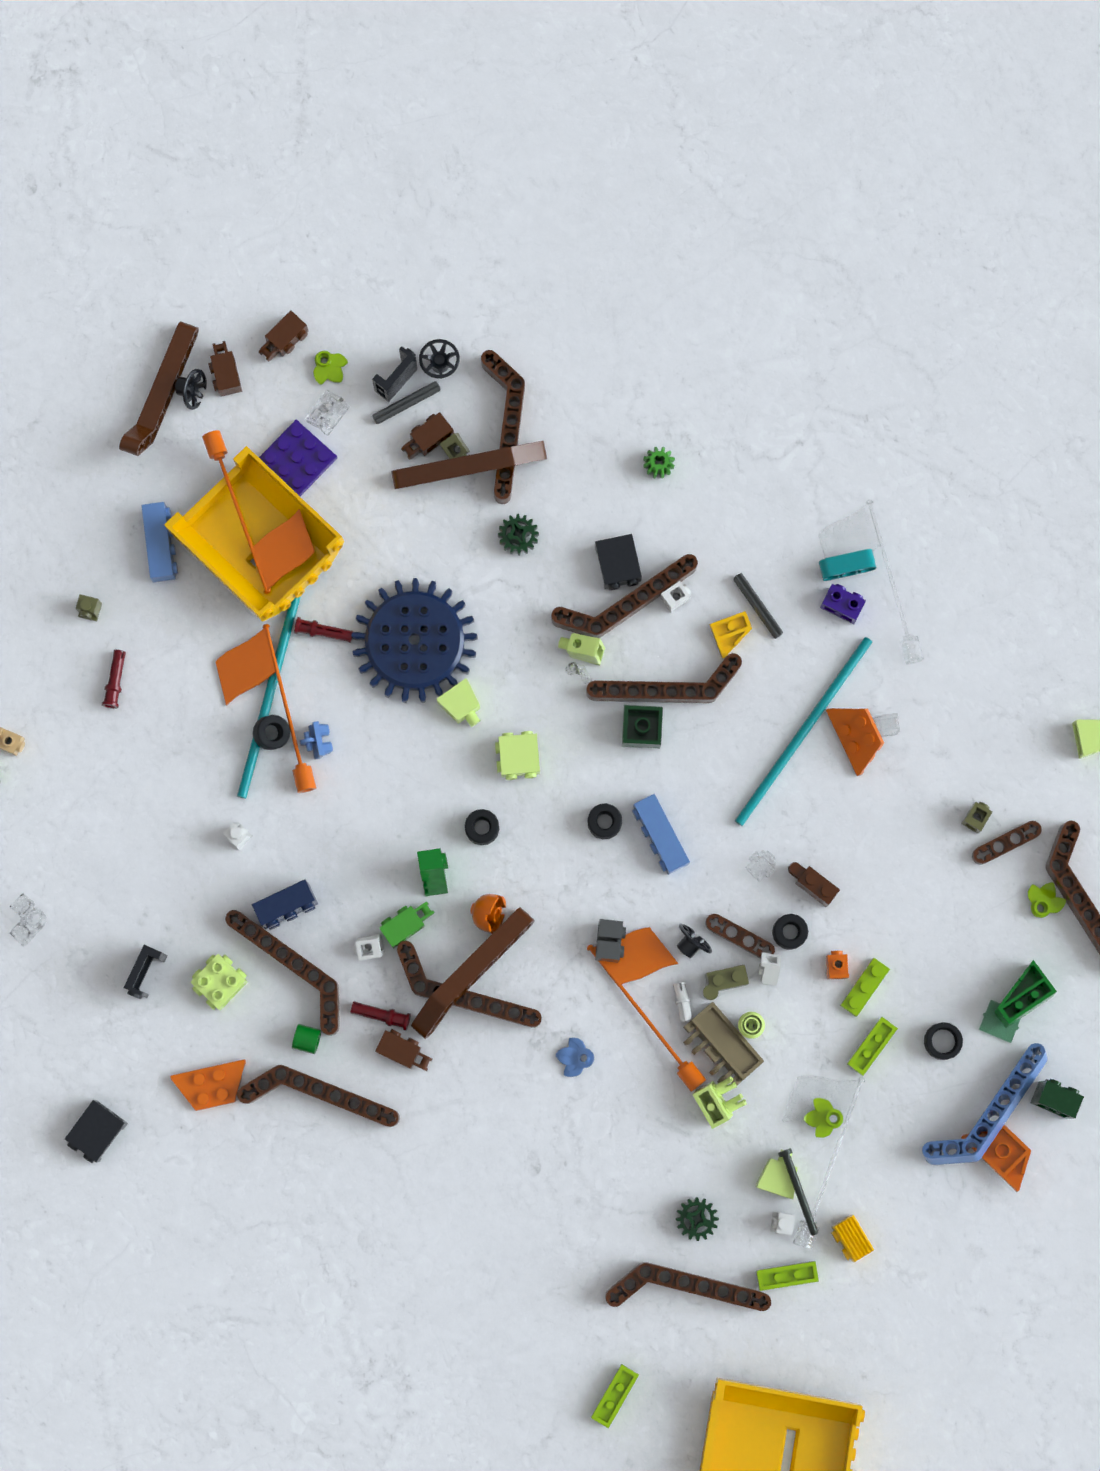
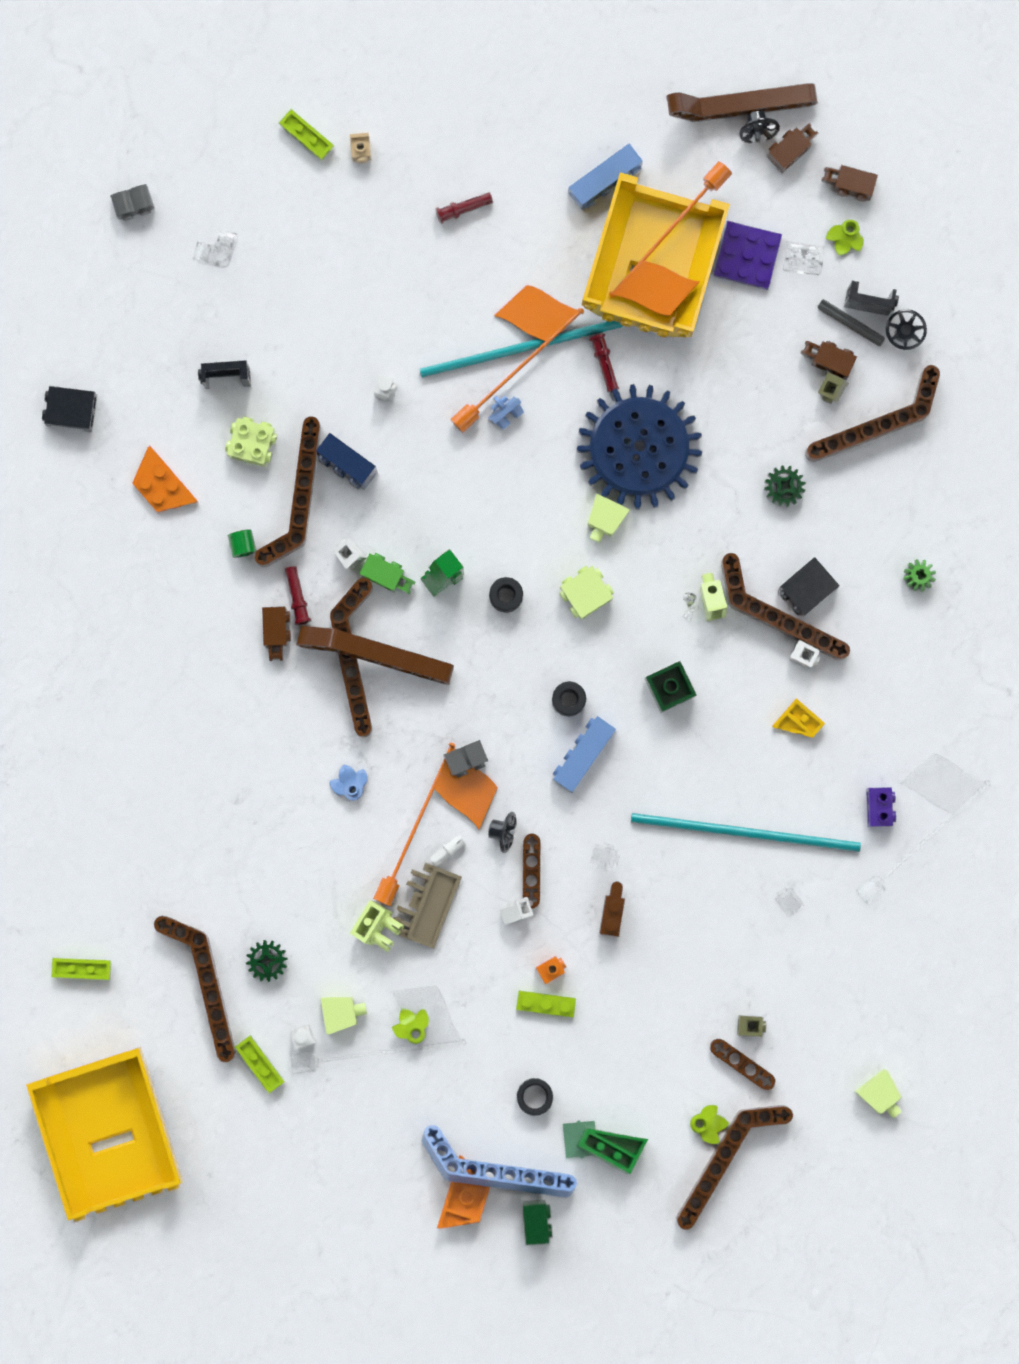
camera: 60 degrees right, 5 degrees up
(88, 607) = (514, 149): olive brick -> none
(282, 728) = (490, 379): black tyre -> none
(325, 1095) = (202, 586): reddish brown beam -> none
(469, 464) = (823, 409): reddish brown beam -> none
(487, 912) = (433, 640): orange cylinder -> none
(661, 687) = (715, 686): reddish brown beam -> none
(724, 980) = (485, 877): olive hinge -> none
(751, 1018) = (452, 922): yellowish green cone -> none
(758, 605) = (837, 732): dark grey axle -> none
(781, 940) = (547, 912): black tyre -> none
(798, 1190) = (336, 1035): pearl dark grey bar -> none
(847, 564) = (917, 792): teal beam -> none
(852, 1239) = (321, 1103): yellow brick -> none
(857, 734) = (766, 881): orange wing -> none
(872, 1046) = (497, 1036): lime plate -> none

